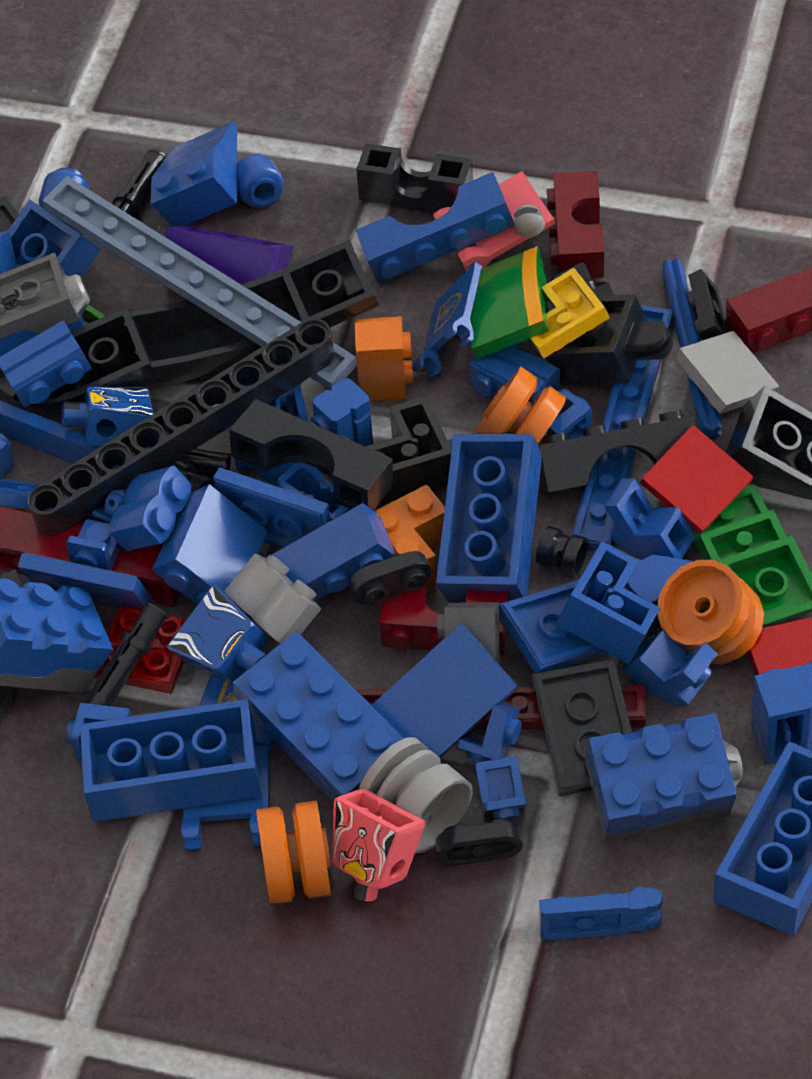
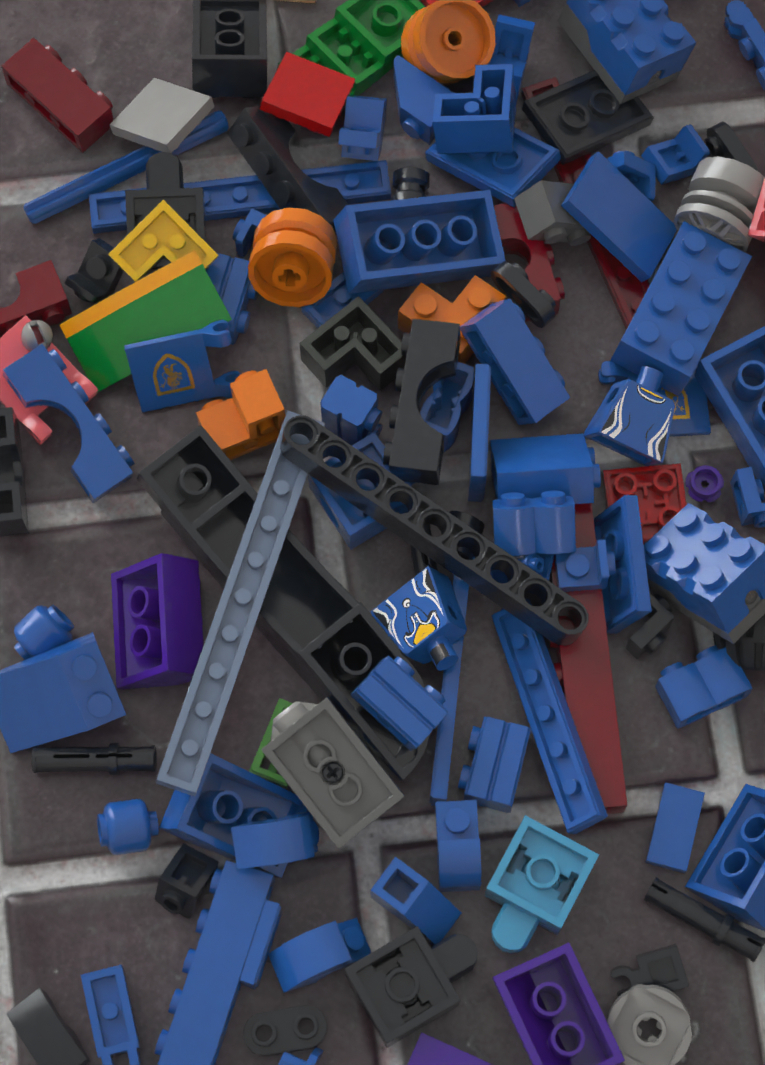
camera: 115 degrees left, 20 degrees up
(127, 656) = (669, 493): black pin -> none
(137, 691) = (704, 474): none -> dark purple plate
(273, 598) = (581, 387): light grey brick -> none
(707, 303) = (99, 154): black plate -> none

